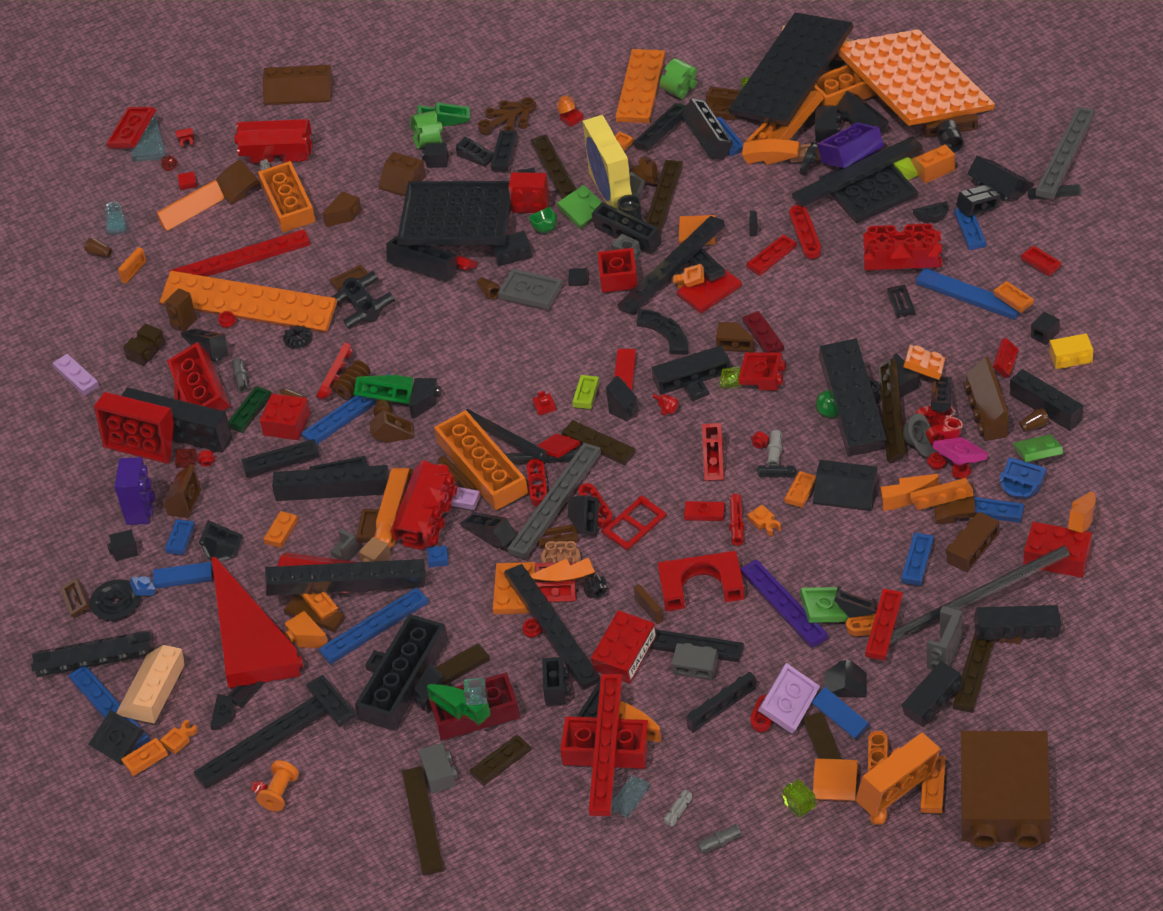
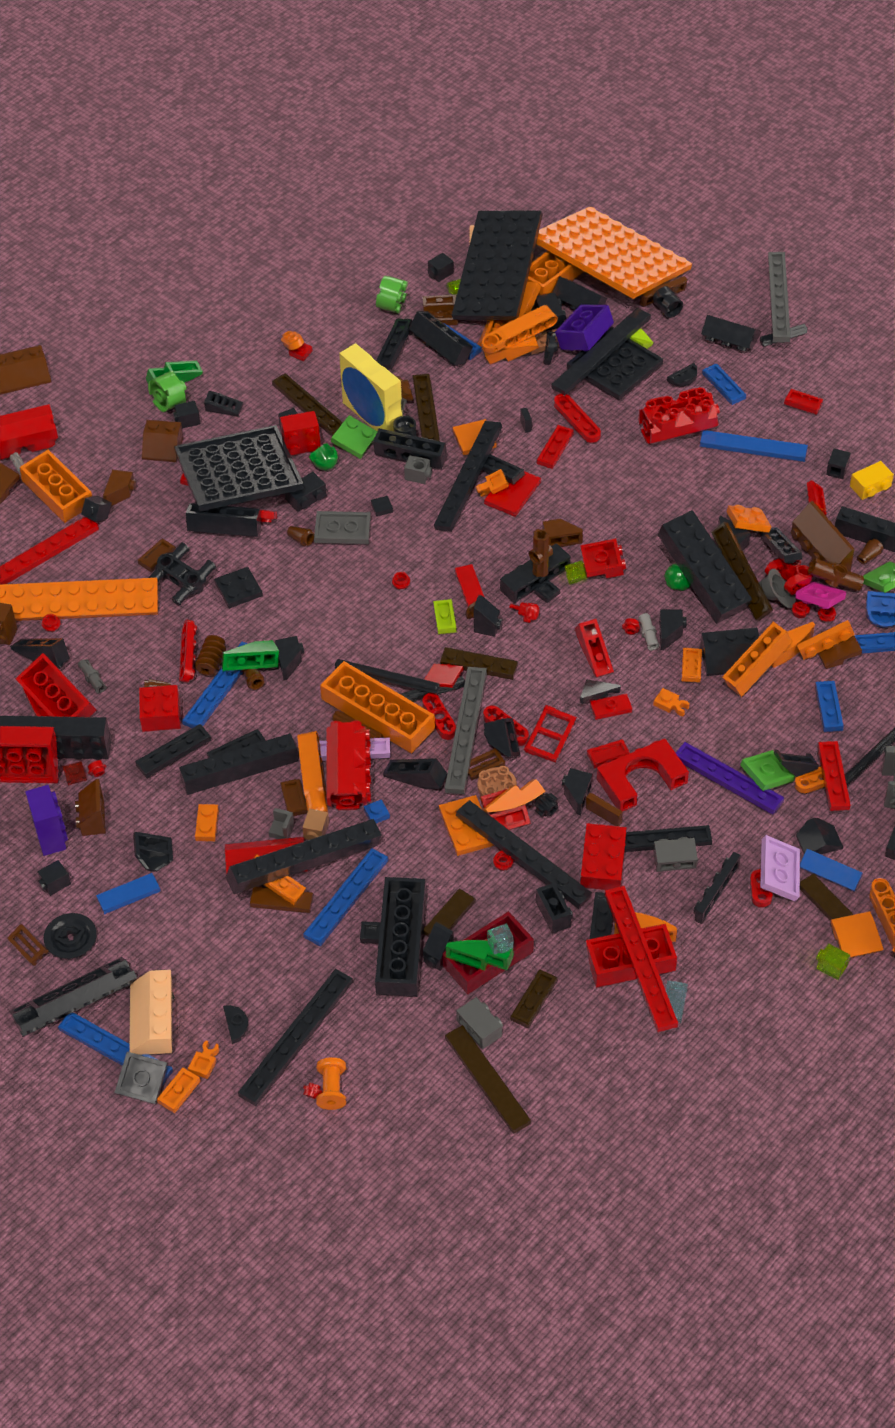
camera: 25 degrees left, 5 degrees up
(142, 586) = (93, 915): blue plate -> none
(180, 537) = (108, 855): blue plate -> none
(242, 694) = (248, 992): black tile -> none
(249, 409) = (117, 707): dark green tile -> none
(250, 640) = (234, 945): red slope -> none
(294, 341) = (131, 630): black gear -> none
(305, 632) = (284, 920): orange slope -> none
(312, 224) = (96, 508): none -> black brick
(330, 700) = (344, 983): black tile -> none
(390, 427) = (271, 695): reddish brown slope -> none
(409, 324) = (238, 587): none -> black plate
(503, 150) = (251, 397): black plate -> none
(525, 107) = (251, 349): reddish brown plant -> none
(543, 403) = (408, 637): red tile -> none
(561, 349) = (401, 580): none -> red plate
(617, 270) = (421, 491): red brick -> none
(631, 574) = (576, 788): none -> black slope
(640, 86) = (353, 308): orange plate -> none
(667, 328) = (492, 537): black tile -> none
(678, 808) = (725, 1001): light grey axle -> none
(679, 551) = (607, 752): none -> red tile
(691, 348) = (541, 552): none -> reddish brown piece
(697, 492) = (597, 690): none -> tile
(719, 839) = (778, 1020): dark grey pin -> none
(736, 525) = (648, 712): red pin -> none
(741, 62) = (440, 267): none -> black brick
(763, 333) = (591, 528): dark red plate -> none
(776, 471) = (659, 652): black axle -> none
(782, 134) = (519, 329): none -> orange piece
(797, 448) = (671, 626): none -> black slope
(860, 496) = (757, 659): none -> orange brick
(903, 311) = (692, 466): black tile -> none
(934, 163) = (664, 328): orange slope -> none
(972, 541) = (870, 678): reddish brown brick -> none
(978, 200) = (722, 356): black brick -> none
(983, 434) = (835, 574): none -> reddish brown piece
(1013, 296) = (798, 440): orange plate -> none

